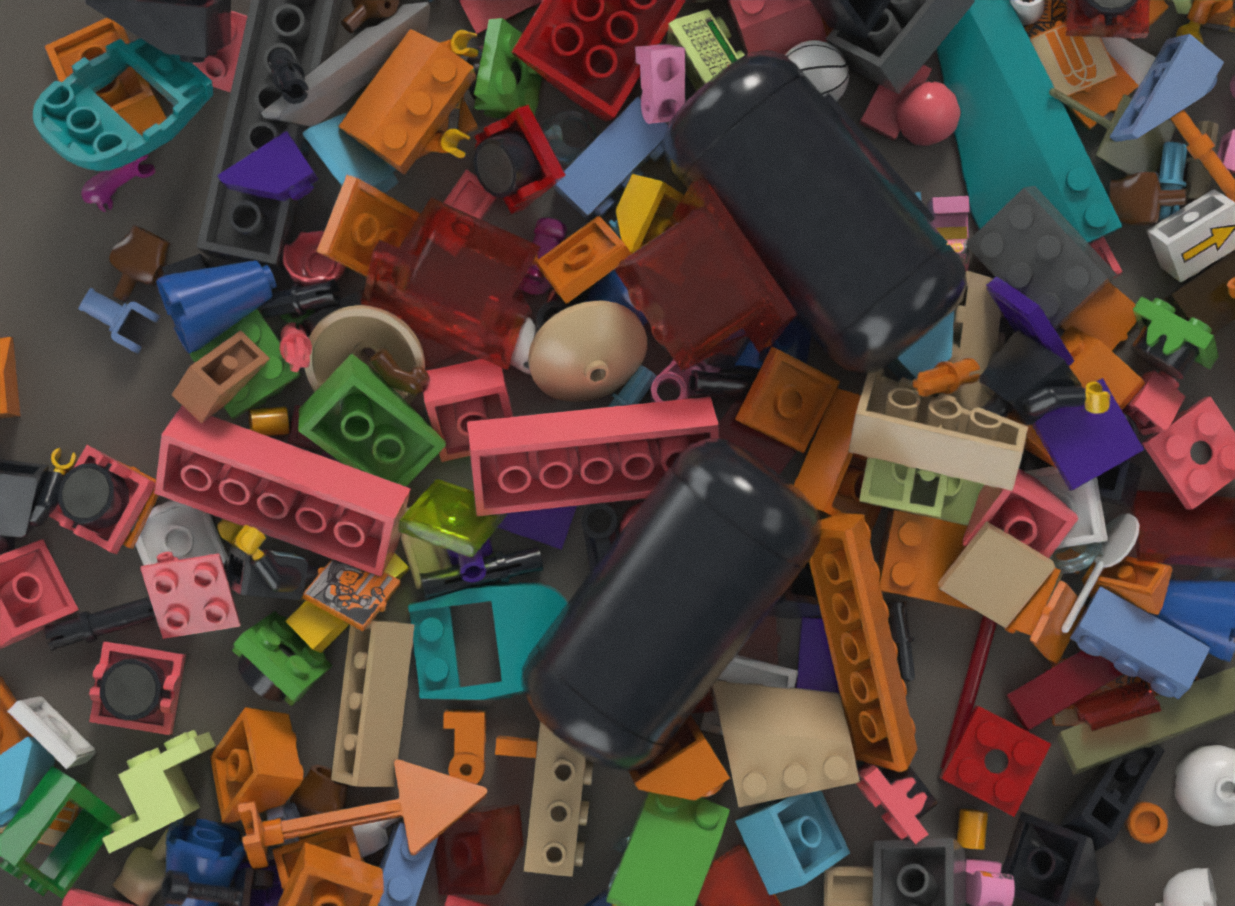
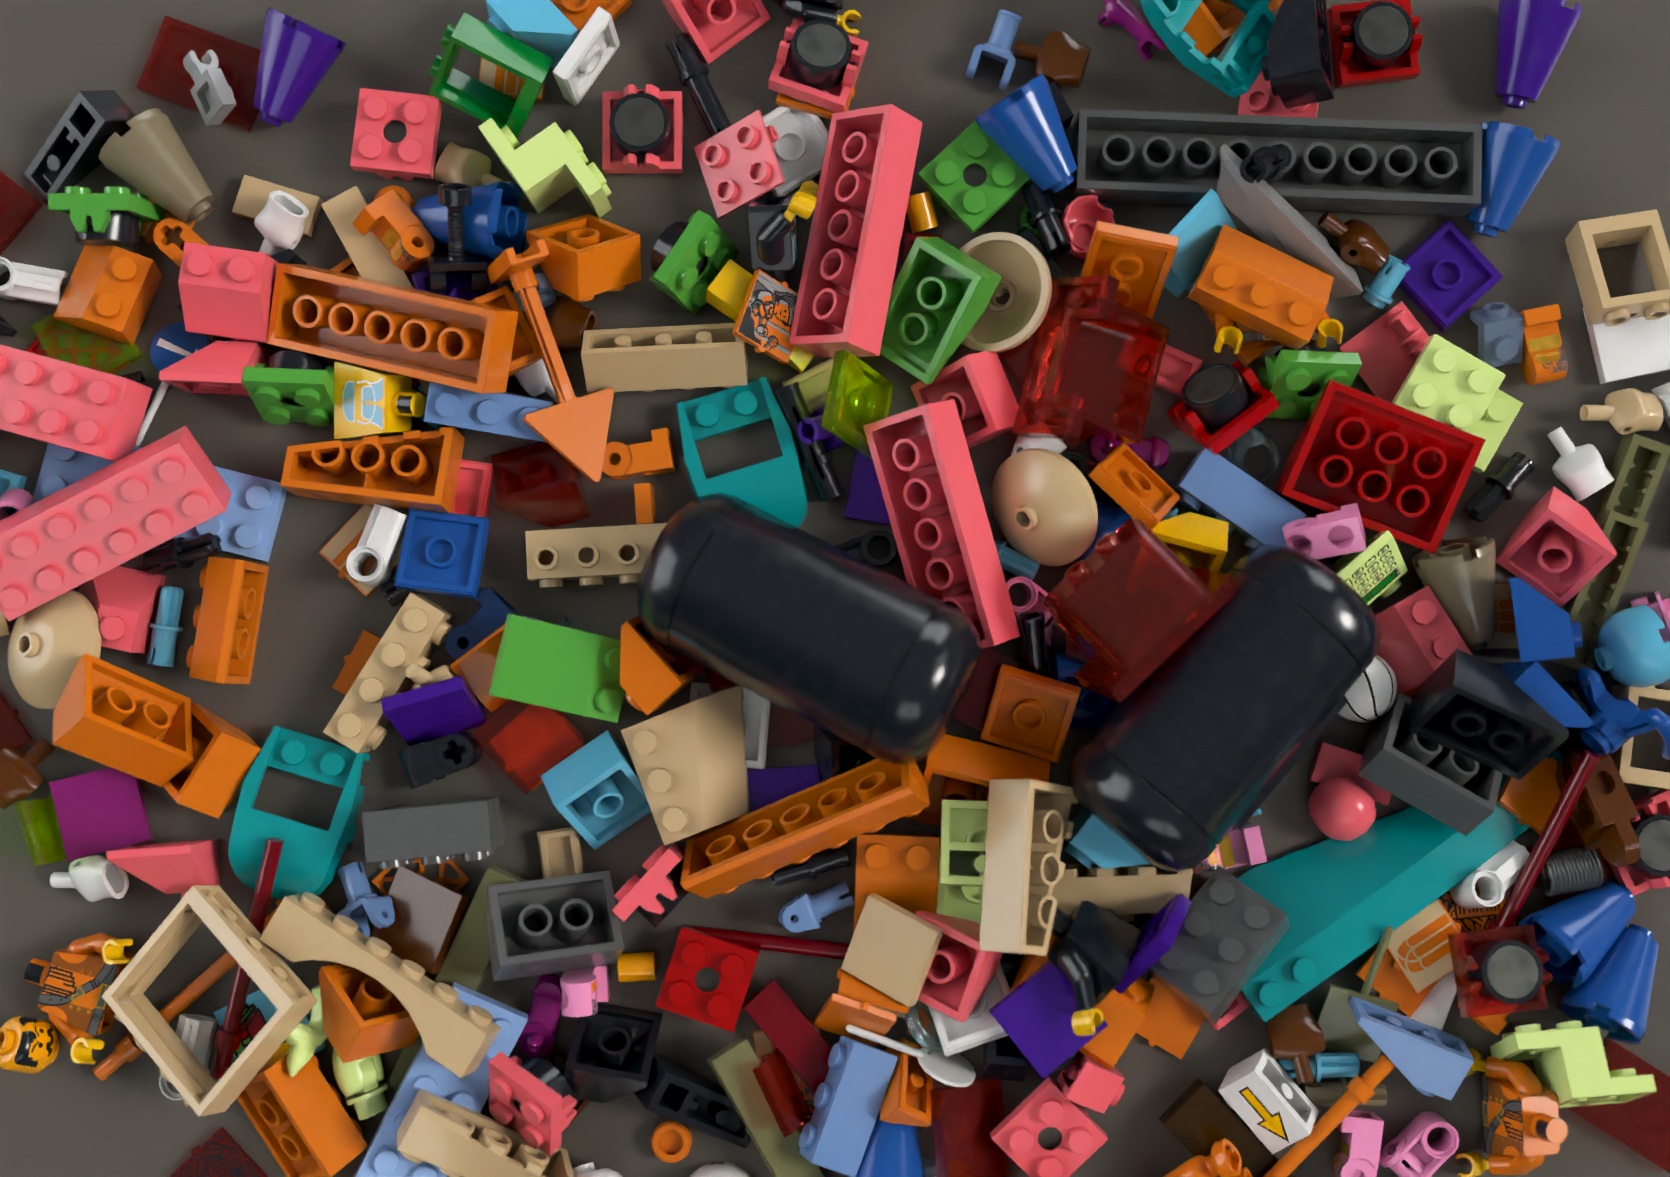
camera: 80 degrees right, 0 degrees up
(219, 376) = (957, 151): nougat slope -> none
(272, 171) = (1168, 166): dark purple slope -> none
(295, 346) = (998, 221): coral axle -> none
(397, 378) = (985, 326): reddish brown arm -> none
(943, 649) = (810, 909): none -> medium blue piece
(946, 377) = (1081, 866): orange axle -> none
(1170, 340) = (1157, 1090): bright green piece -> none

